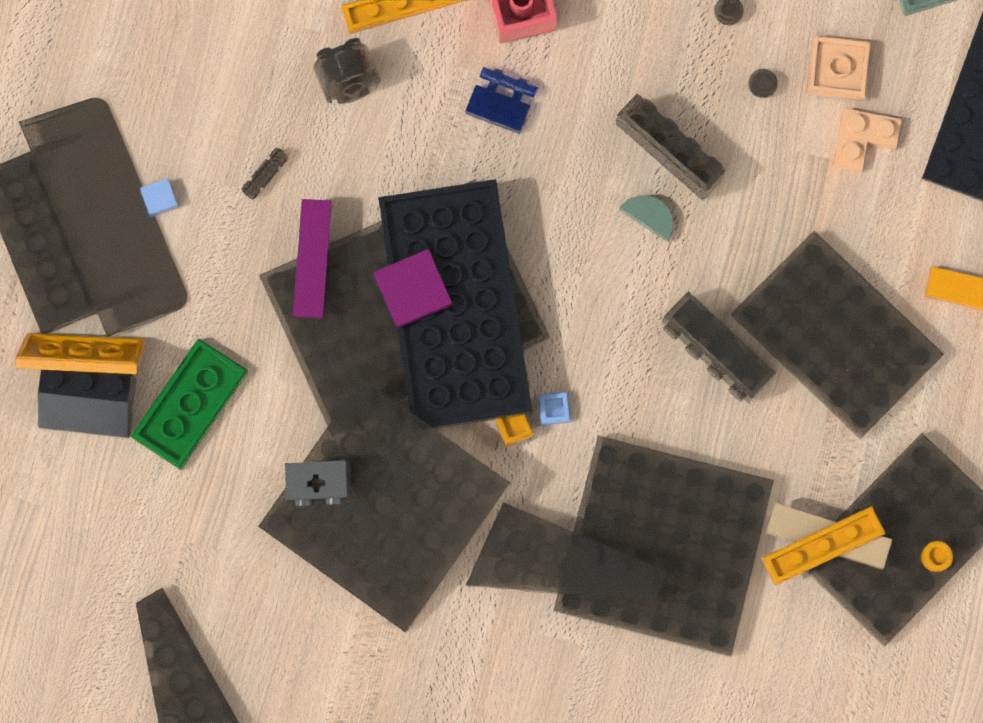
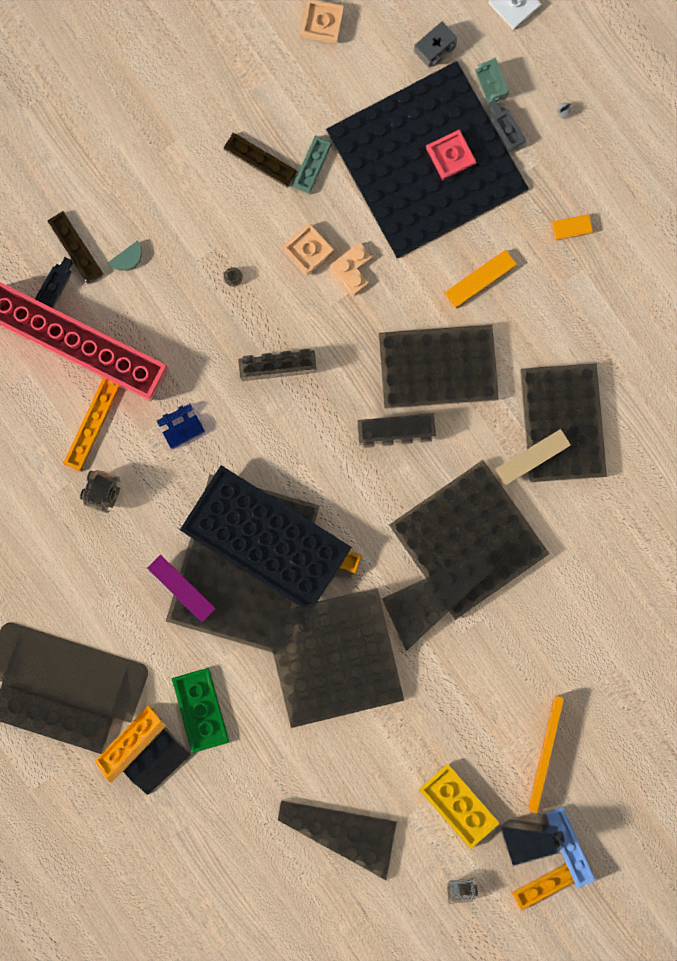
camera: 50 degrees left, 5 degrees up
(159, 197) = (82, 637): light blue tile -> none
(264, 173) = (116, 575): clear smoke axle -> none
(336, 476) = (287, 687): dark grey brick -> none
(412, 288) = (240, 553): magenta tile -> none
(554, 408) = (356, 533): light blue tile -> none
(651, 214) = (301, 403): sand green tile -> none
(762, 83) = (284, 292): clear smoke plate -> none
(823, 546) = (536, 464): light orange tile -> none
(937, 556) = (586, 414): light orange tile -> none

